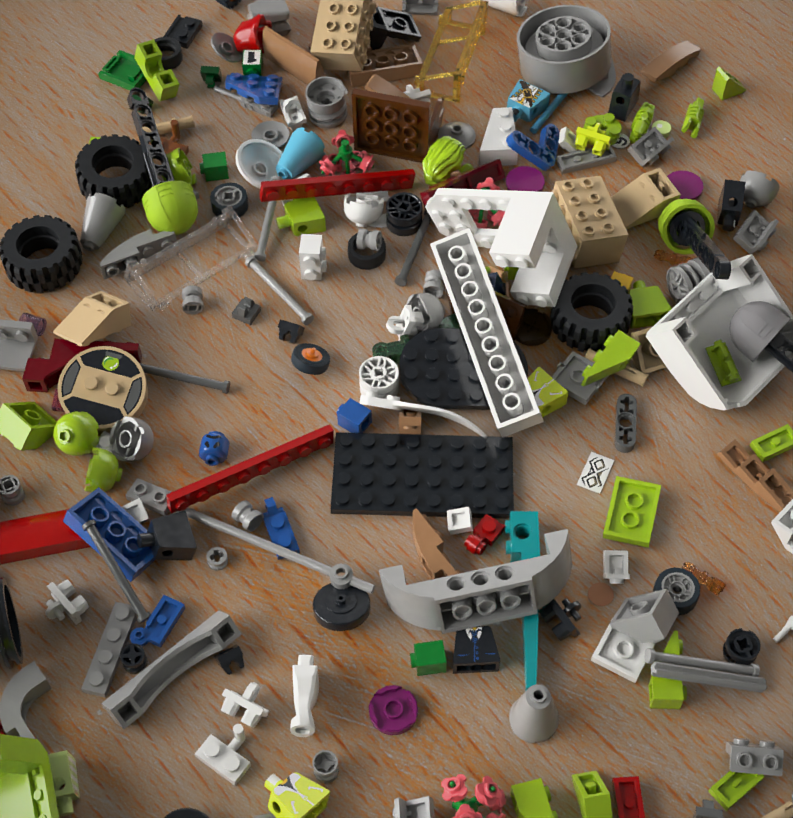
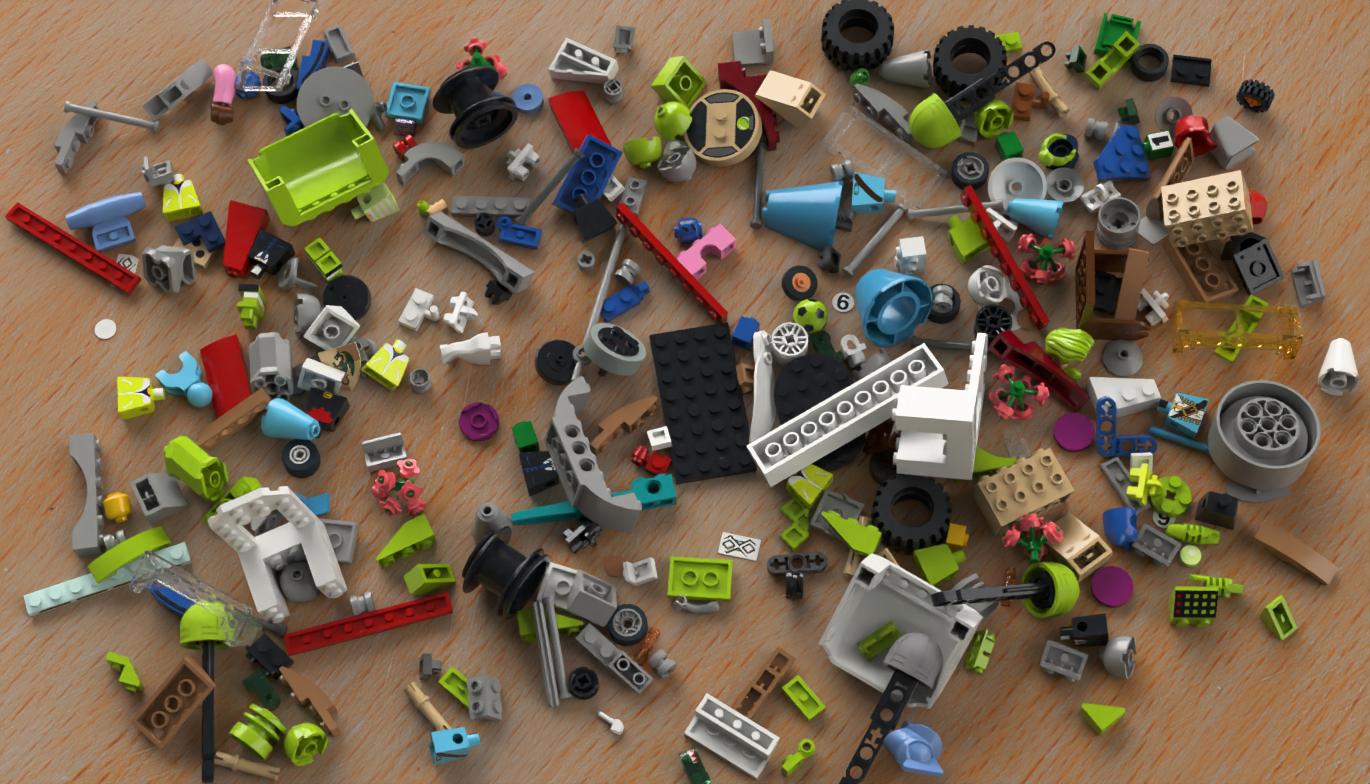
camera: 80 degrees right, 10 degrees up
(38, 322) = (783, 53): beam -> none
(90, 266) = (859, 76): none -> bright green plate
(90, 719) = (426, 209): none -> arm
(219, 102) = (1095, 129): none -> light grey wheel
(225, 283) = (869, 194): none -> medium azure torso
(231, 335) = (805, 212): none -> dark azure cone
(233, 130) = (1059, 151): none -> piece
(238, 423) = (716, 241): none -> bright pink arch
(338, 331) = (843, 302): none -> white sticker
(348, 538) = (614, 349): none -> light grey wheel
(352, 352) = (811, 315): none -> lime piece
(360, 280) = (891, 306): none -> dark azure cone
(450, 52) = (1248, 321): none -> lime slope
(589, 416) = (798, 532): none -> lime tile
(613, 694) = (505, 571): none -> black wheel
(629, 211) = (1019, 533): none -> coral plant
(631, 163) = (1120, 526): none -> blue piece
(652, 426) = (792, 584): none -> black wheel
(660, 530) = (681, 603): none -> light grey piece
(715, 132) = (1193, 605): none -> slope
(718, 610) = (613, 659): none -> light grey slope
(728, 563) = (662, 664): none -> light grey wheel

